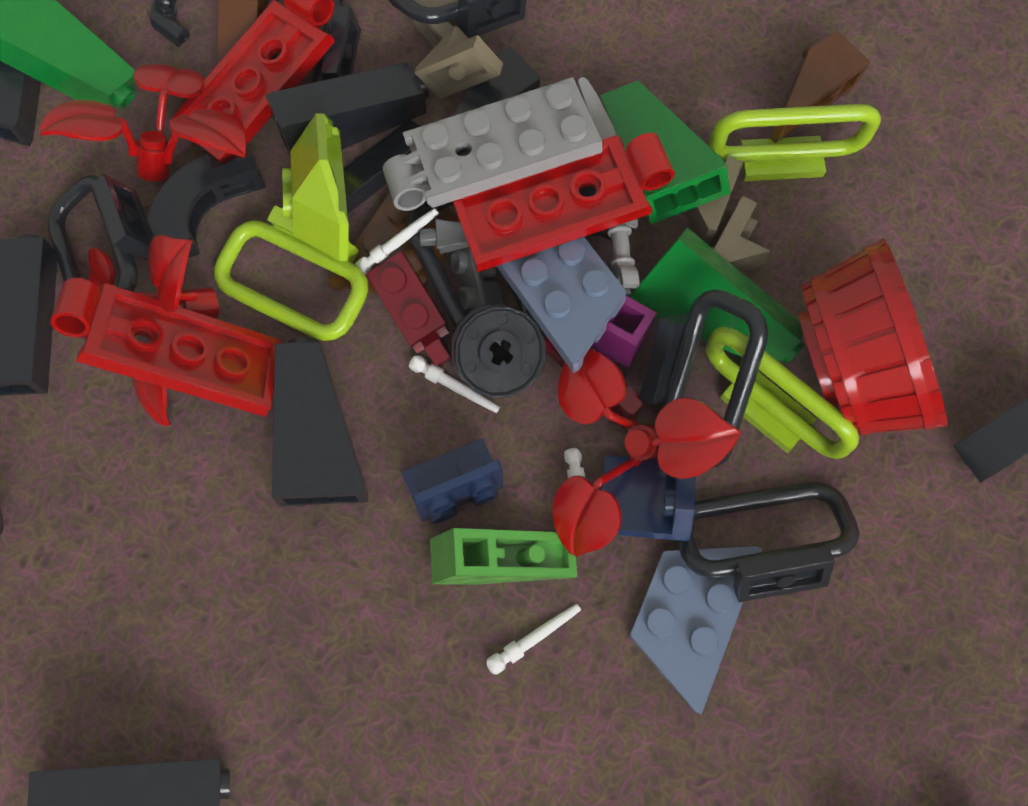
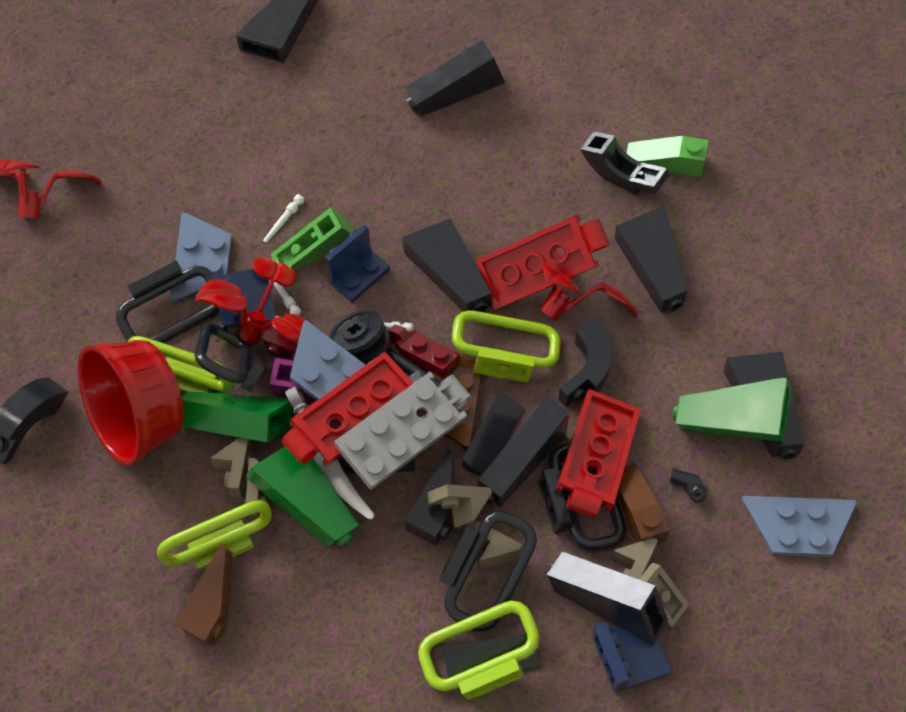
camera: 160 degrees right, 10 degrees down
(123, 221) = (619, 322): black bar -> none
(153, 153) = (666, 351): red plant -> none
(316, 189) = (506, 374): lime wedge -> none
(381, 252) = (456, 369): white piece -> none

